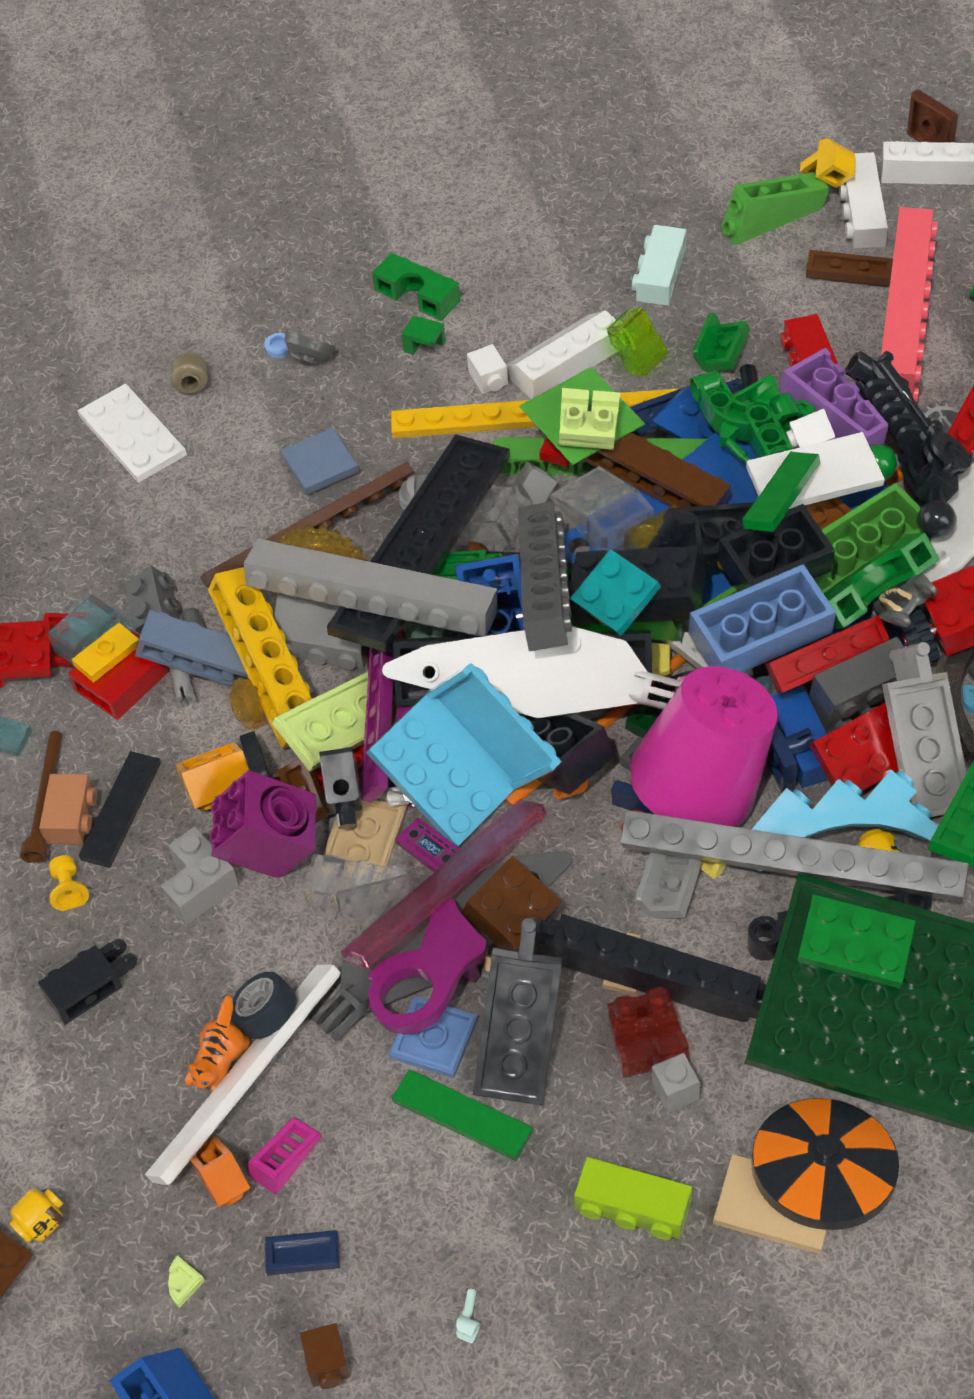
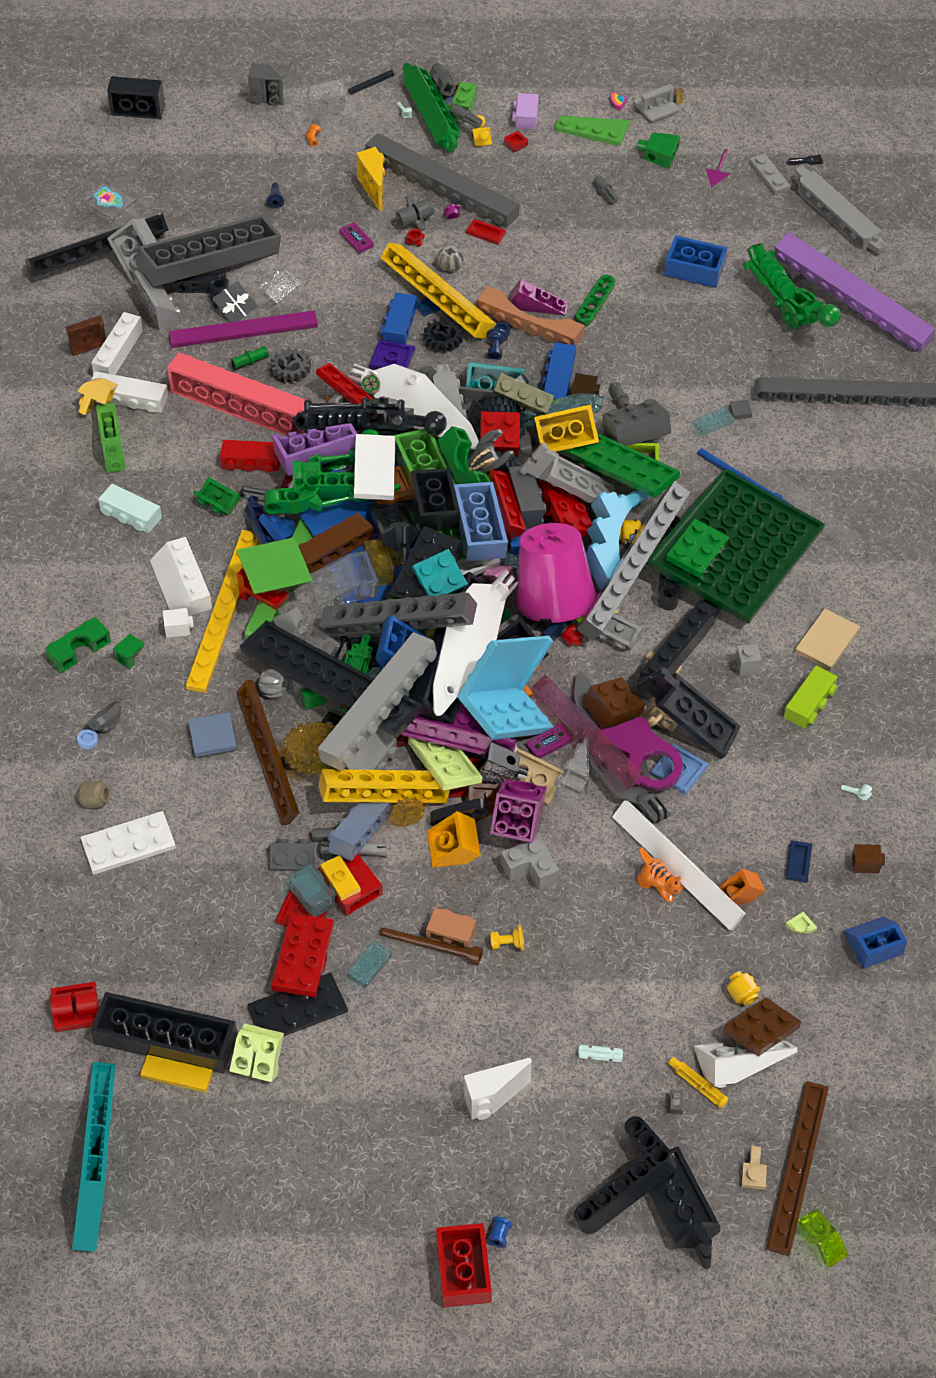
camera: 80 degrees left, 0 degrees up
(86, 979) = (587, 939): black hinge -> none
(119, 809) = (457, 901): black tile -> none
(263, 1005) = (628, 842): black wheel -> none
(270, 1172) = (748, 863): dark pink slope -> none
(462, 1115) = (734, 766): green tile -> none
(586, 427) = (288, 559): yellowish green hips -> none
(637, 341) = (200, 534): clear neon green brick -> none
(644, 1029) = (712, 665): clear red hips -> none
(781, 491) = (396, 478): green tile -> none
(810, 430) = (341, 458): white brick -> none
(825, 1164) = (813, 609): dish -> none
(849, 268) = (182, 417): reddish brown plate -> none

